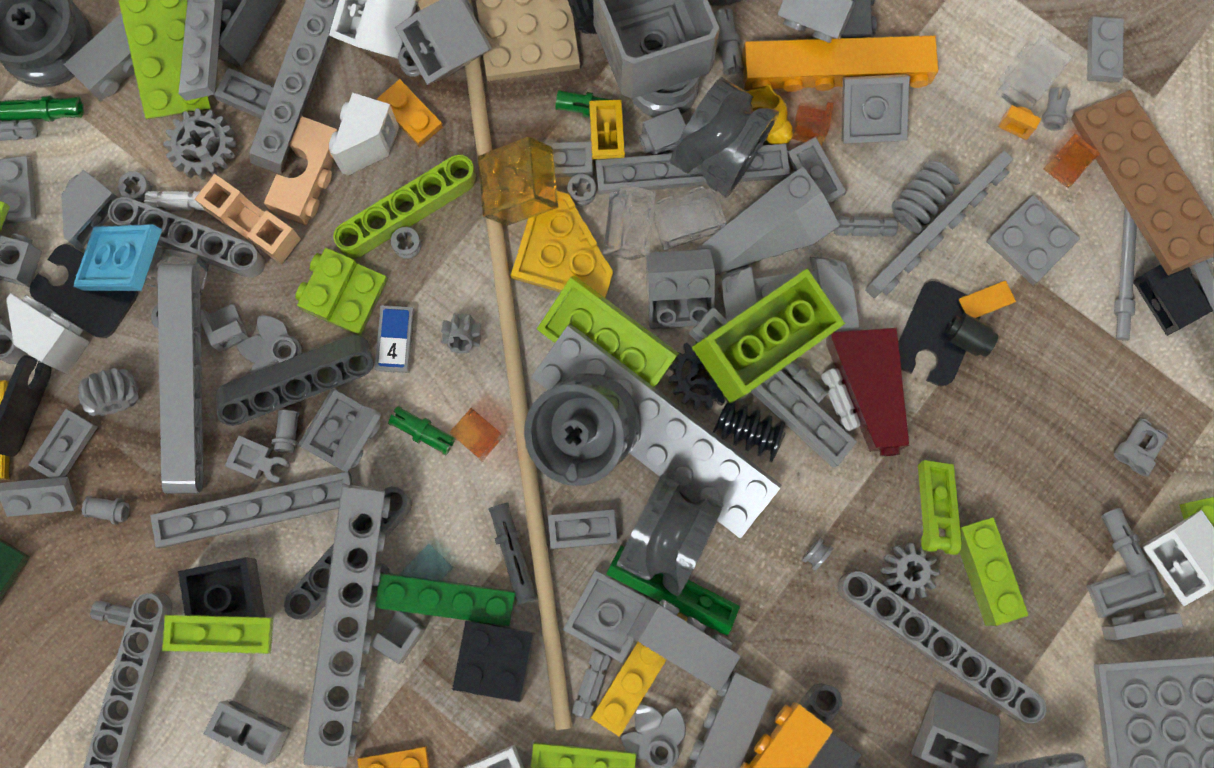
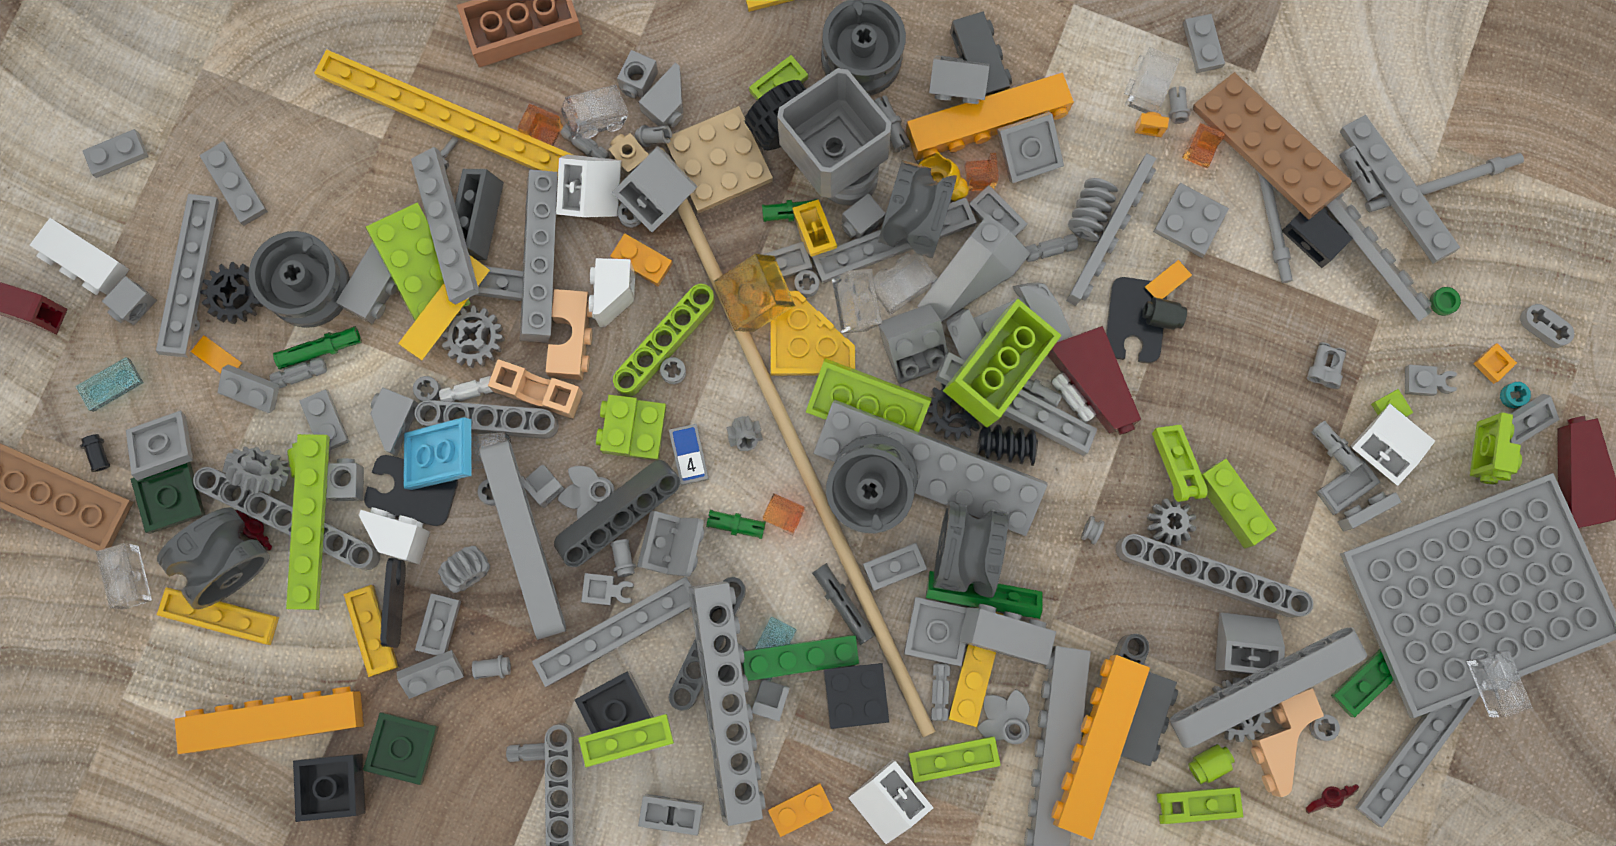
camera: 20 degrees left, 0 degrees up
(168, 109) = (436, 318): none -> yellow tile

